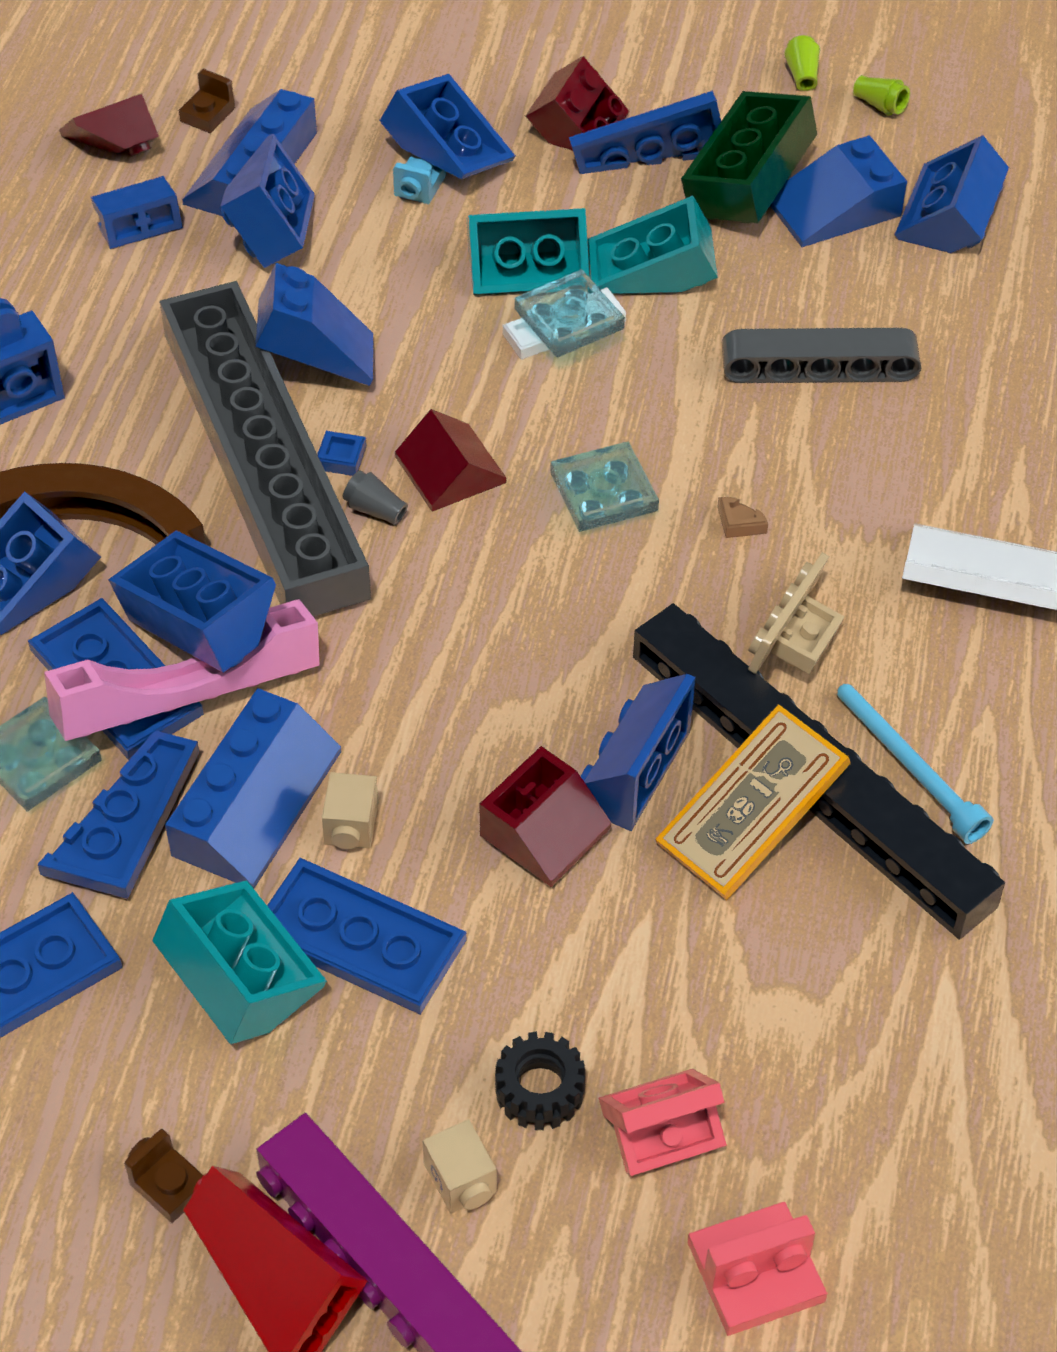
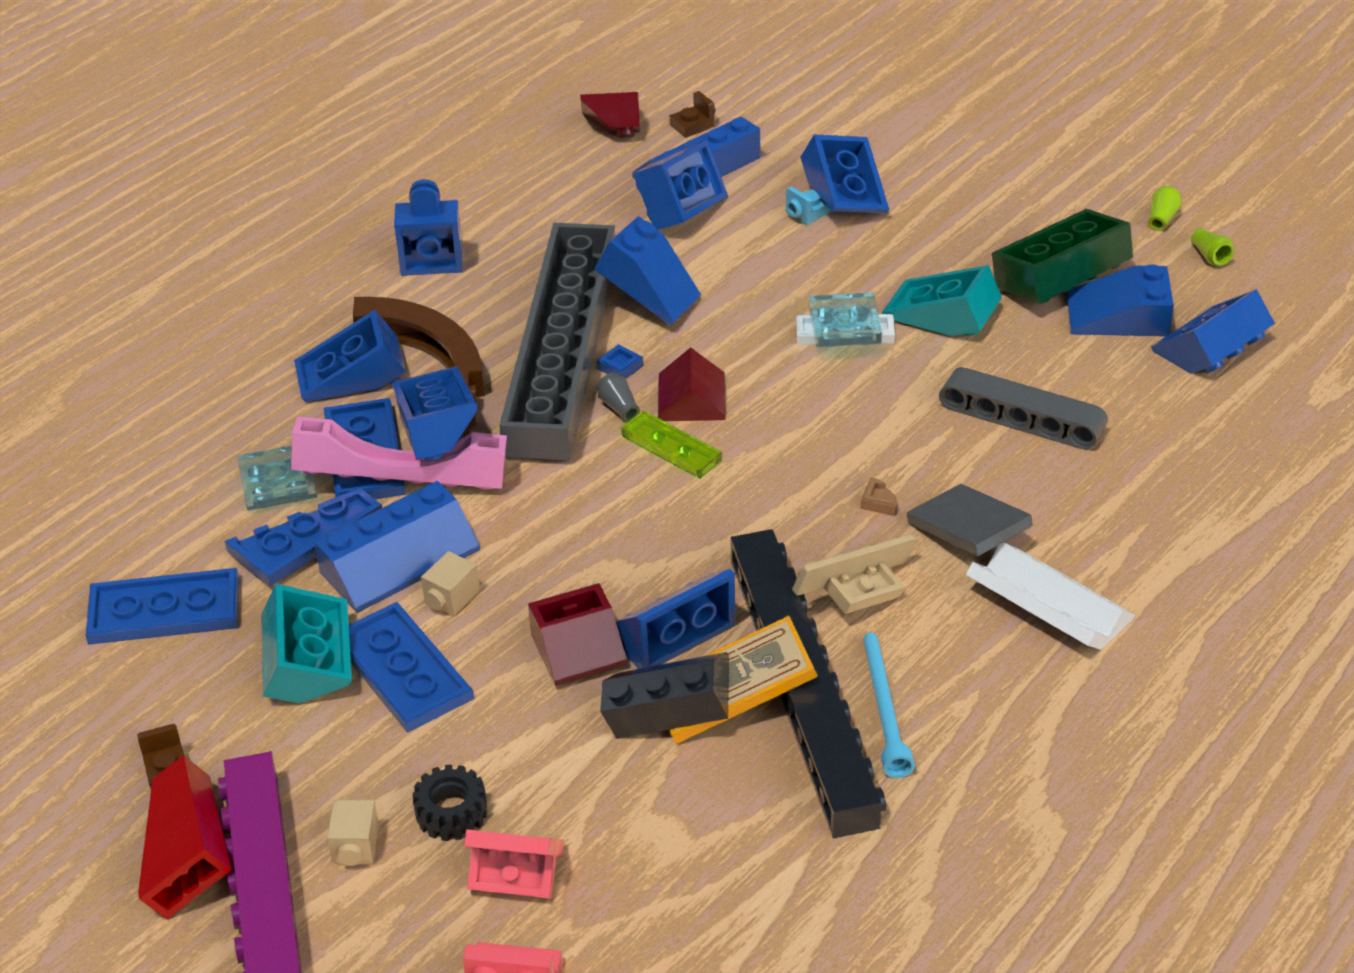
camera: 30 degrees right, 10 degrees down
(137, 212) = (592, 170): blue hinge -> none
(471, 535) = (671, 444): none -> clear neon green tile
(525, 249) = (849, 267): teal slope -> none
(574, 103) = (958, 192): dark red slope -> none
(604, 486) = (789, 442): clear light blue plate -> none
(649, 137) = (992, 220): blue wing -> none
(697, 846) = (667, 696): none -> black slope
(860, 510) = (969, 519): none -> dark grey tile

